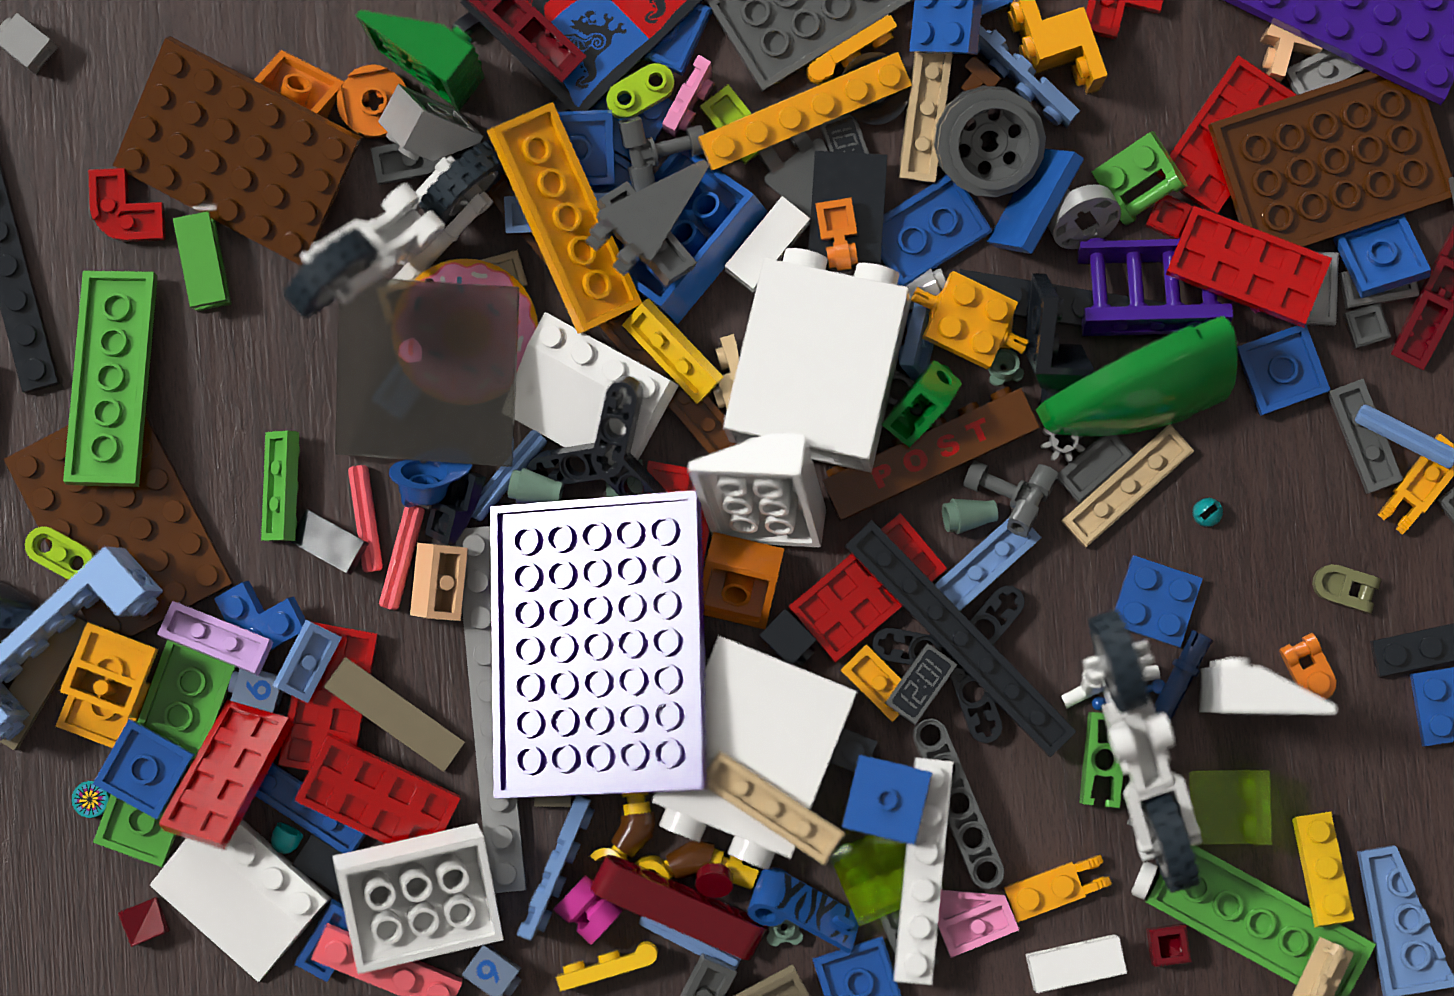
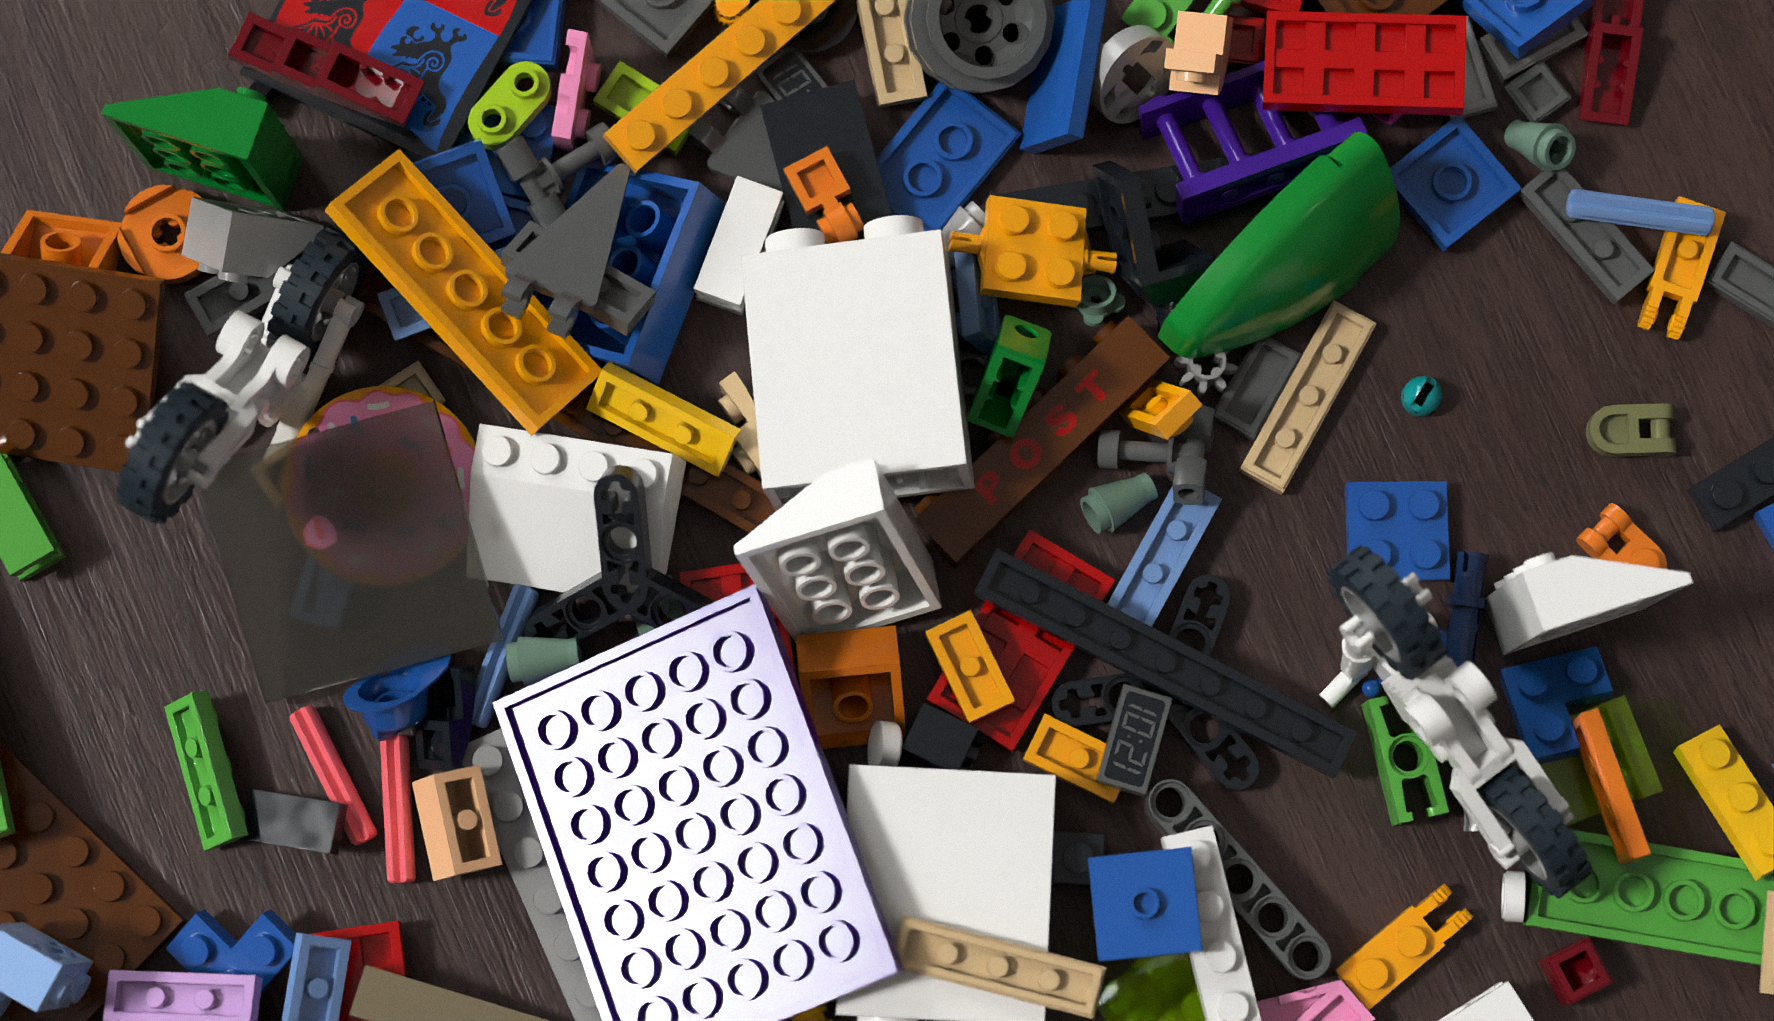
camera: 25 degrees left, 5 degrees down
(748, 628) = (884, 744): none -> white tile
(825, 595) = (969, 667): none -> light orange plate
(1020, 461) = (1161, 409): none -> light orange plate
(1136, 219) = (1199, 52): none -> light nougat brick
(1214, 748) = (1543, 692): none -> blue plate
(1236, 829) = (1610, 788): none -> orange tile
(1356, 365) = (1543, 144): none -> sand green cone

